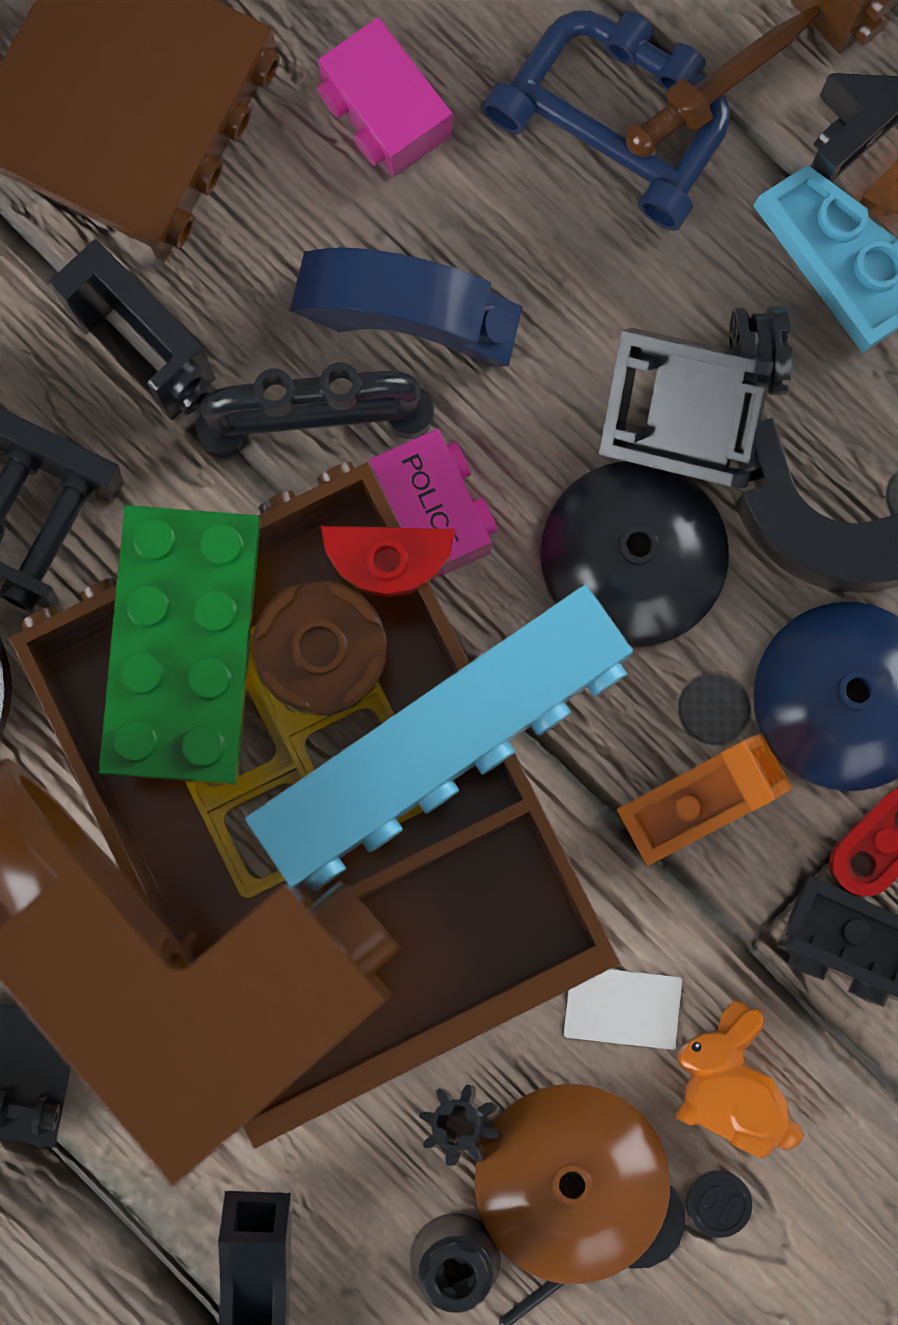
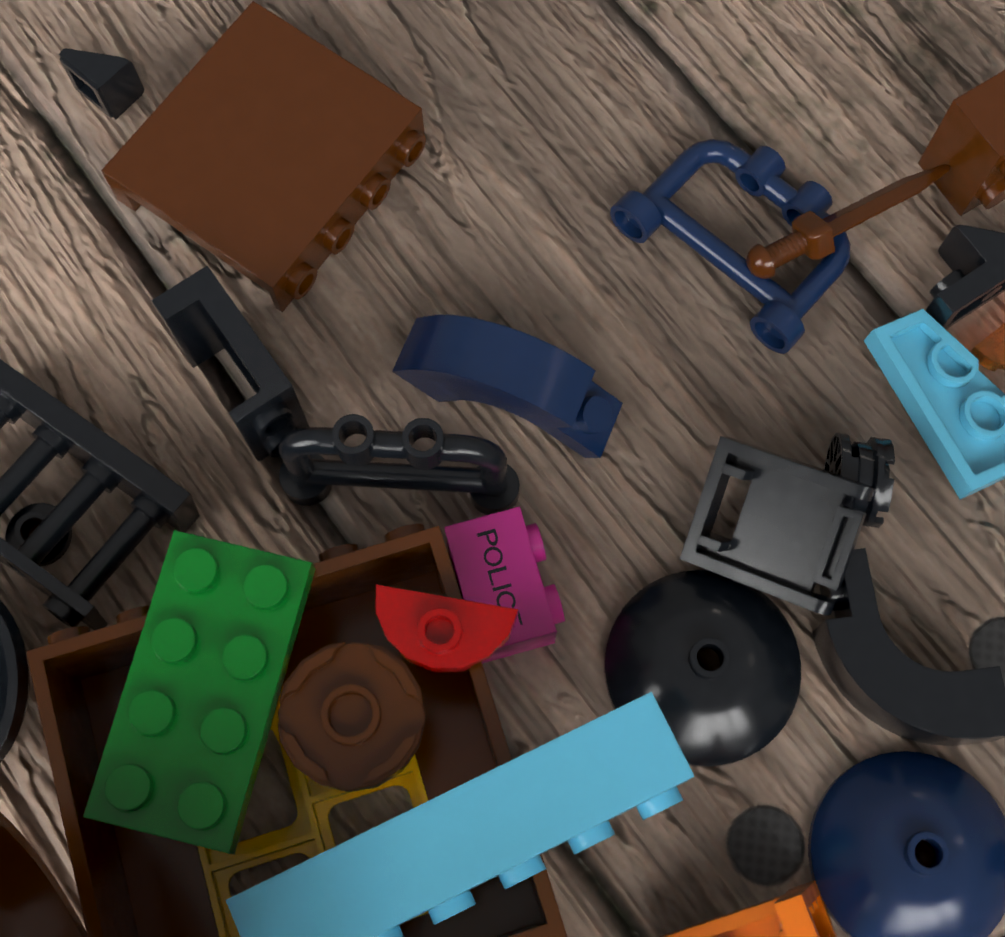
camera: 10 degrees right, 10 degrees down
(384, 98) = (519, 190): dark pink brick -> none

